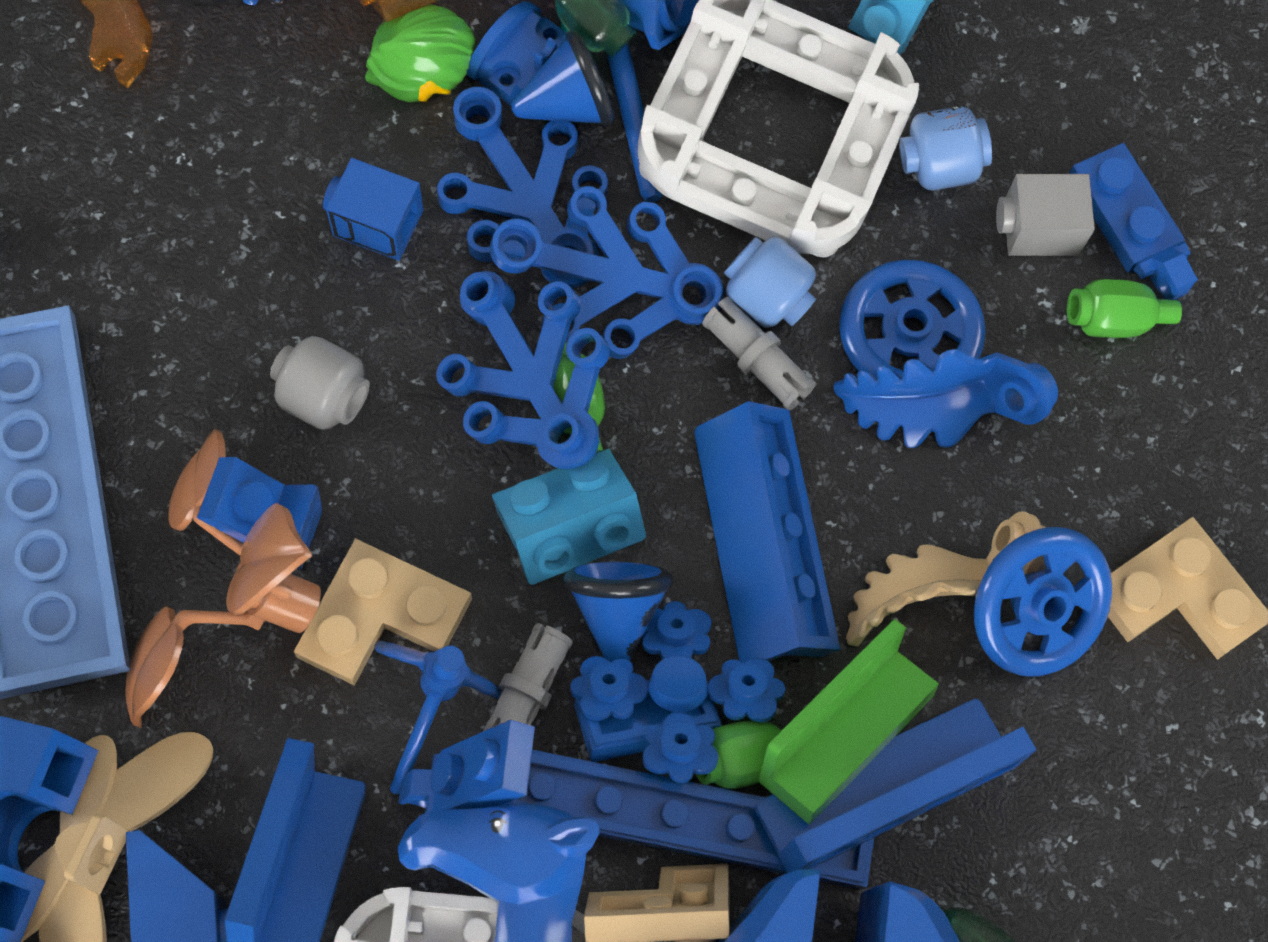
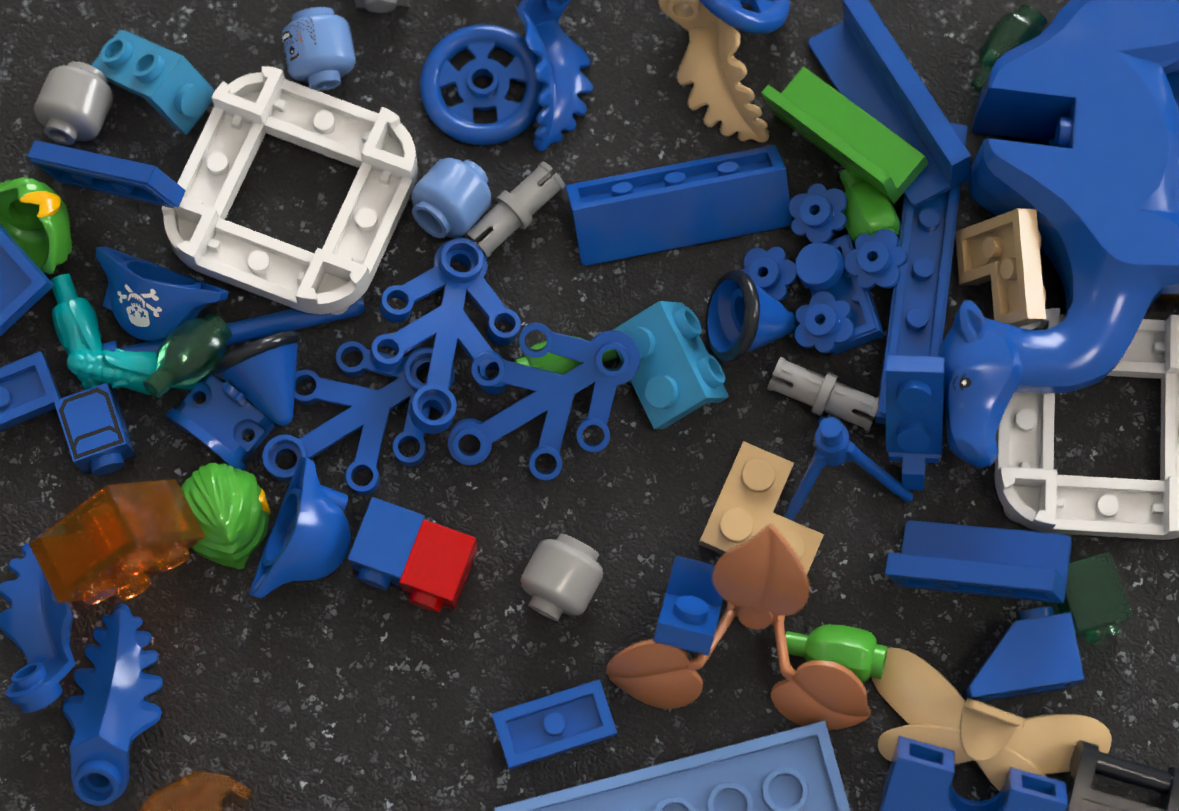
camera: 85 degrees left, 5 degrees up
(157, 375) = (554, 724): none -> blue plate
(207, 690) = (843, 645): none -> bright green plant
(344, 258) = (438, 567): none -> red brick
(387, 130) = (307, 535): none -> blue hat

